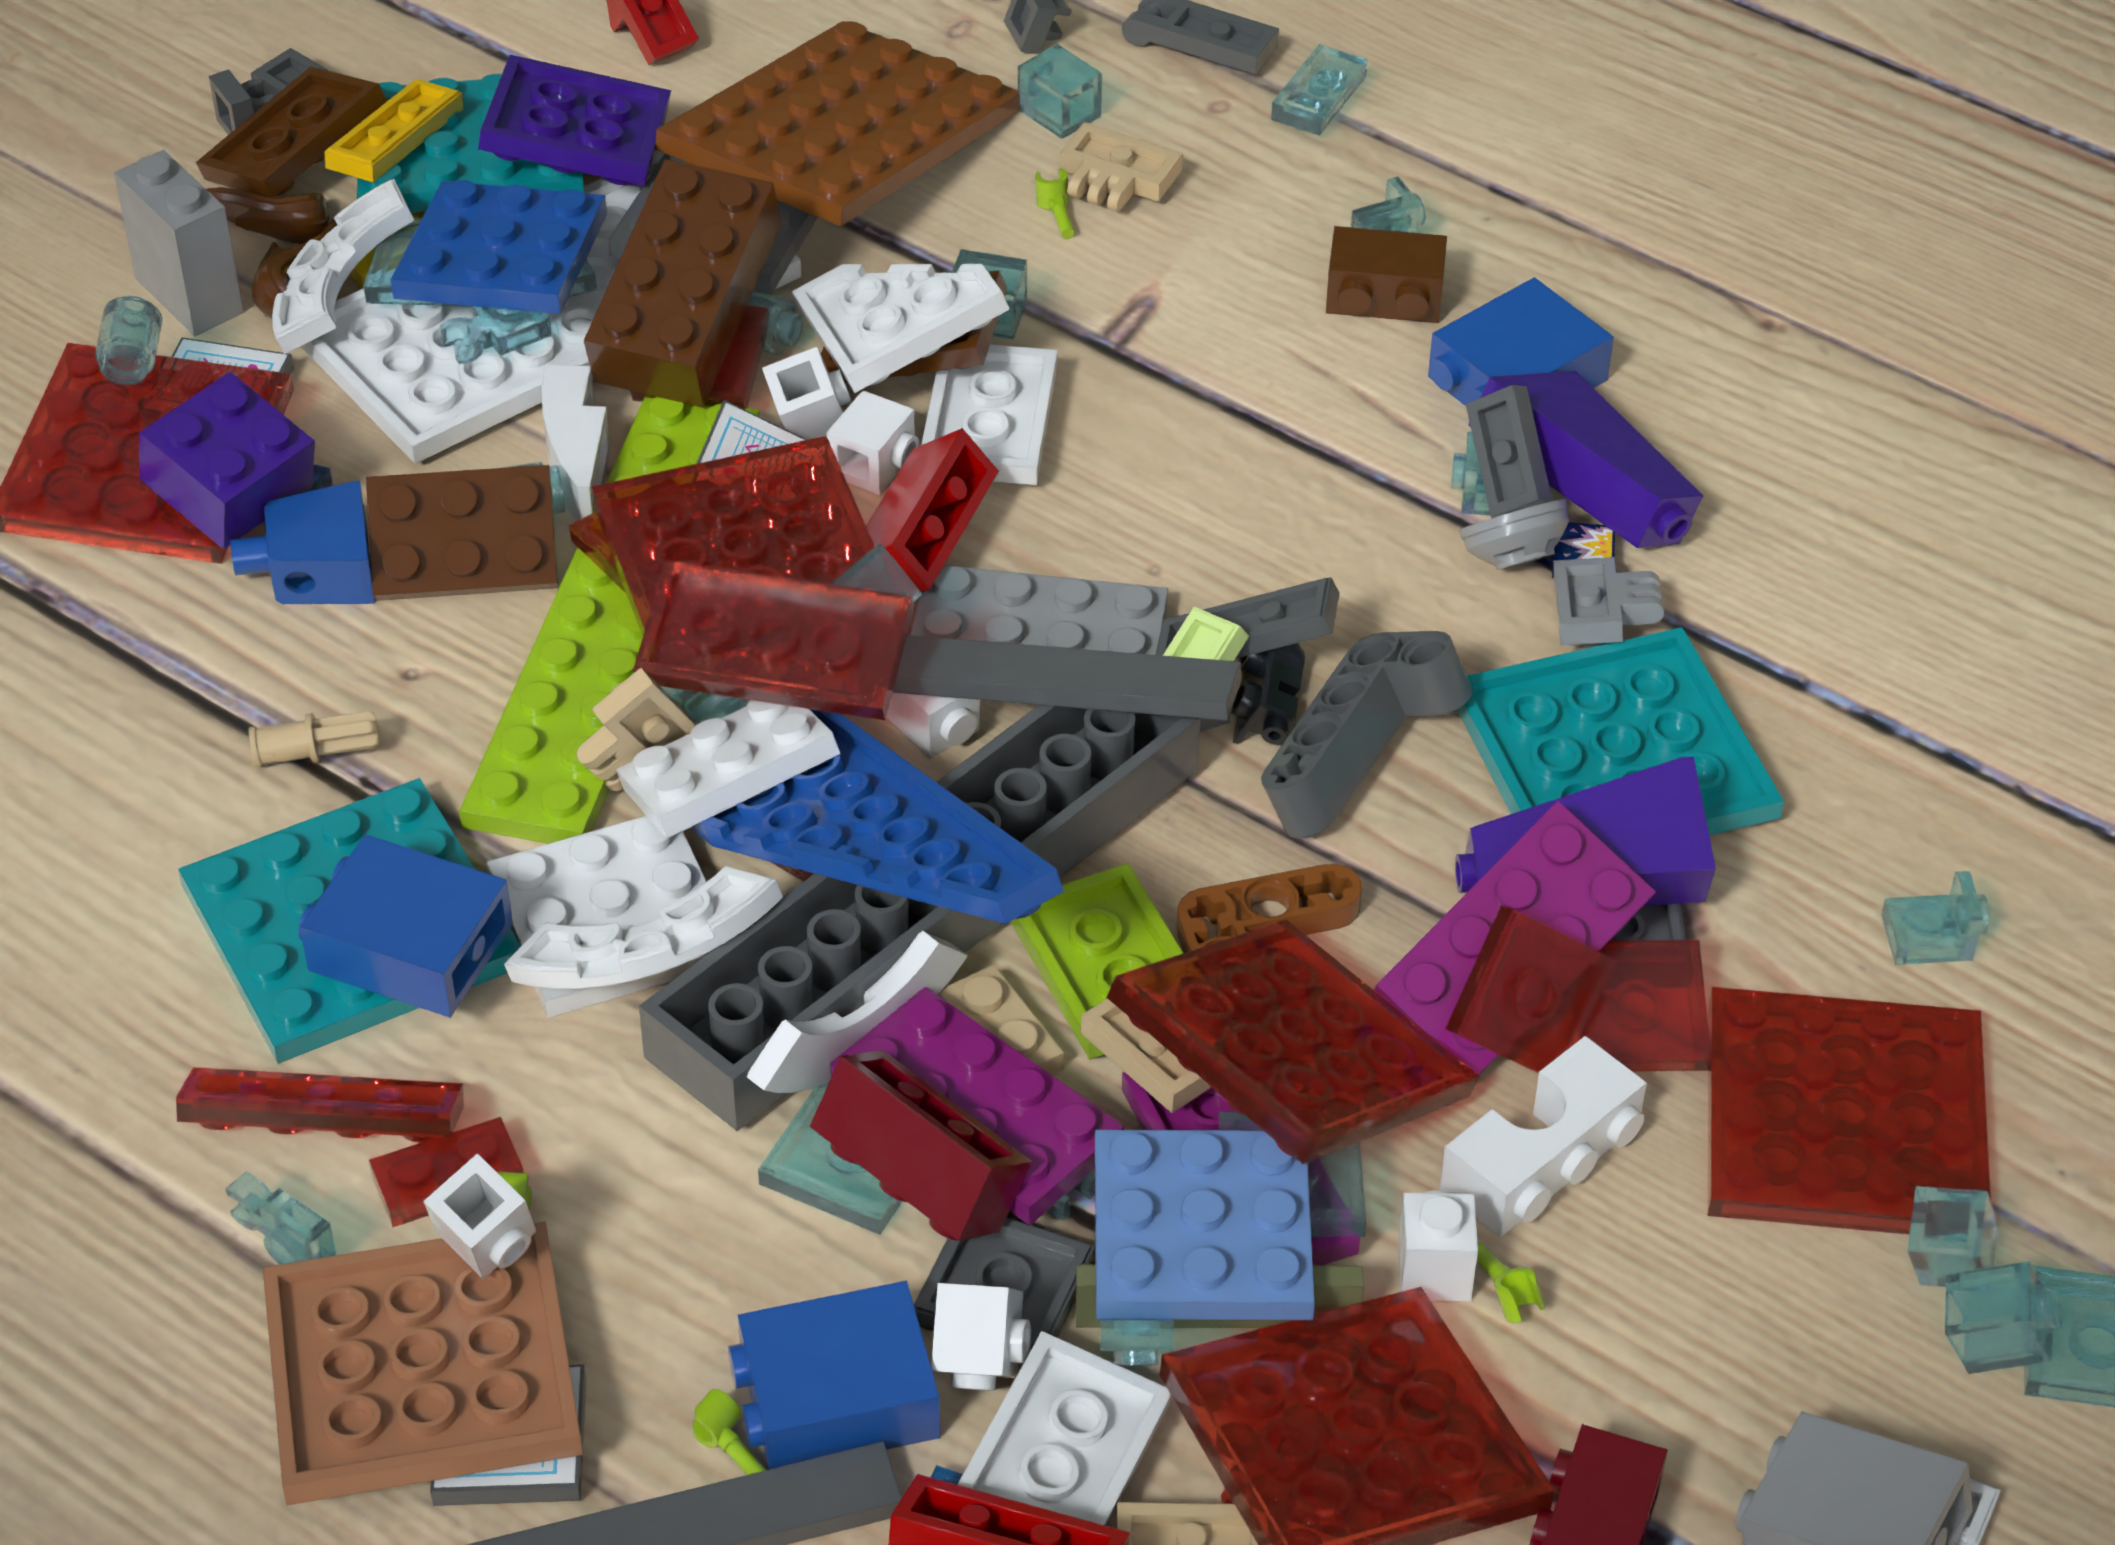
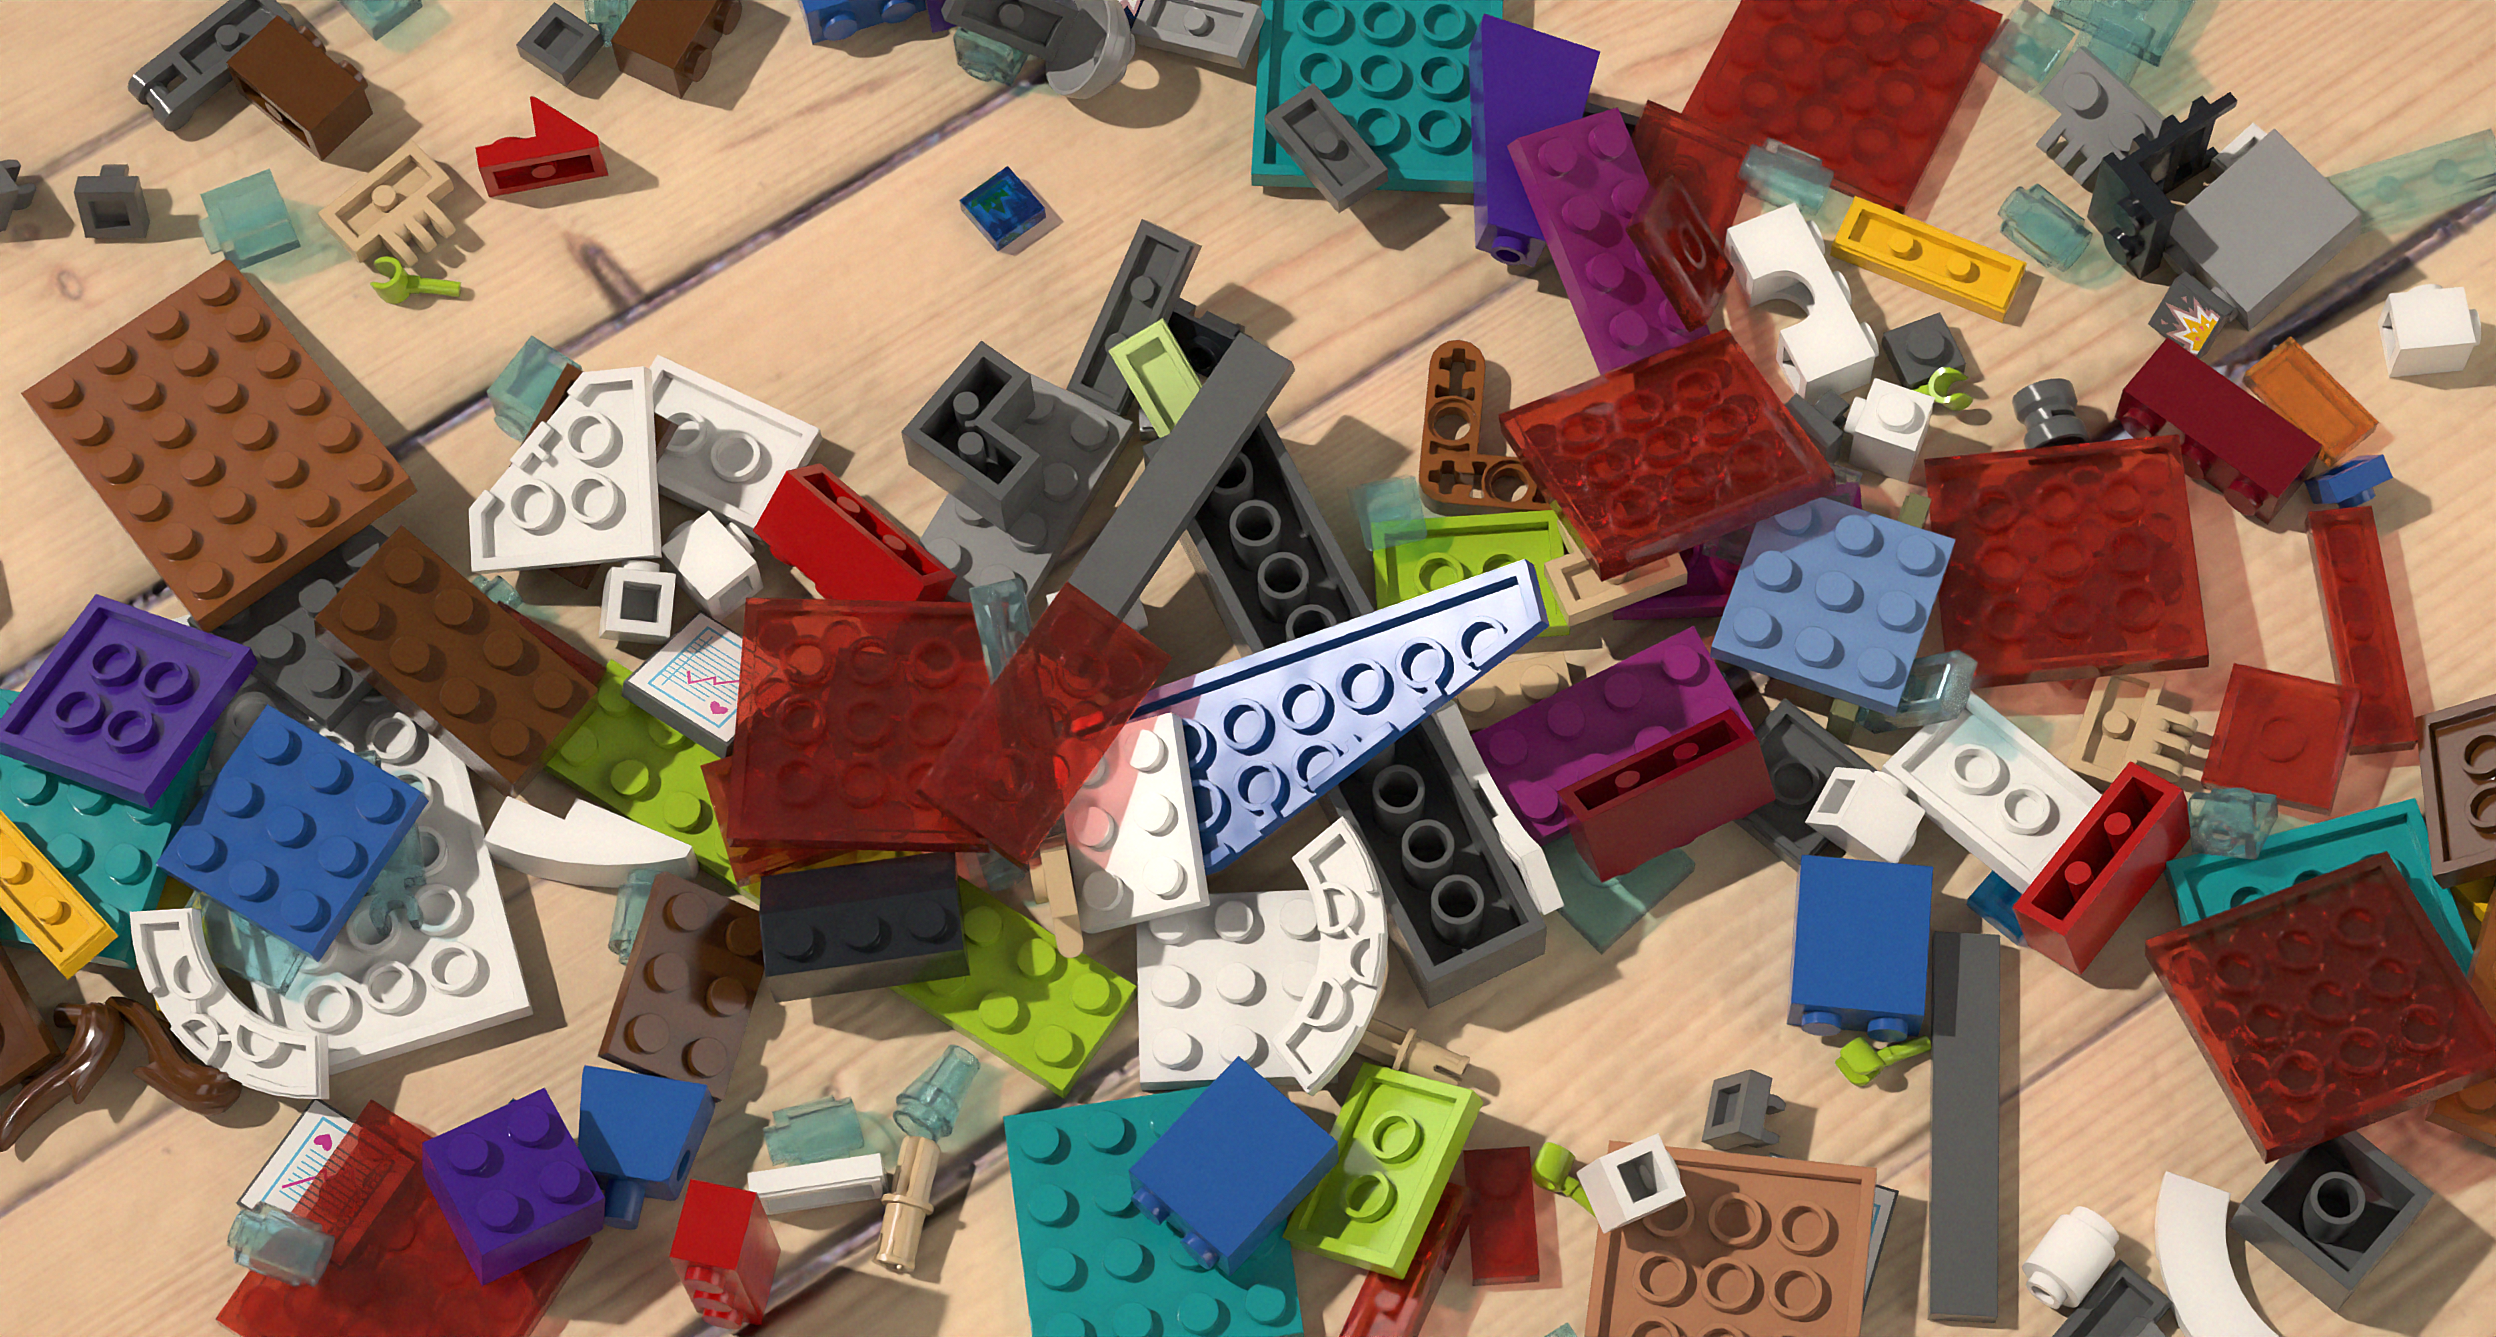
camera: 65 degrees left, 20 degrees up
(179, 242) = (126, 1161): light grey brick -> none
(197, 596) = (725, 1254): none -> red brick
(307, 666) = (820, 1184): none -> white tile
(359, 658) = (813, 1132): none -> clear light blue brick
(424, 728) = (936, 1097): none -> clear light blue cone
(446, 1056) = (1395, 1158): none -> lime plate
(551, 611) = (862, 926): none -> black slope
(587, 1048) = (1410, 1053): none -> tan axle
(615, 1323) = (1739, 1111): none -> dark grey tile
(1060, 535) = (968, 441): none -> dark grey brick
(1142, 864) = (1388, 511): none -> clear light blue bracket
(1197, 83) = (301, 86): none -> reddish brown brick
(1212, 235) = (555, 156): none -> red slope
(1321, 211) = (560, 44): none -> dark grey plate
(1329, 536) = (1002, 208): none -> tile
(1355, 718) = (1290, 277): dark grey beam -> none
(1405, 1174) = (1821, 422): none -> dark grey tile
(1499, 710) = (1326, 148): none -> dark grey plate
(1530, 1384) = (2049, 414): none -> dark grey wheel
(1560, 1264) = (1921, 349): none -> dark grey plate
(1667, 1245) = (1928, 259): none -> yellow tile
(1682, 1084) = (1785, 176): none -> clear light blue brick
(1720, 1484) = (2191, 315): none -> dark grey tile
(1753, 1324) = (2044, 227): none -> clear light blue brick
(1822, 1374) = (2131, 192): none -> black plate
(1908, 1331) = (2096, 114): none -> light grey hinge

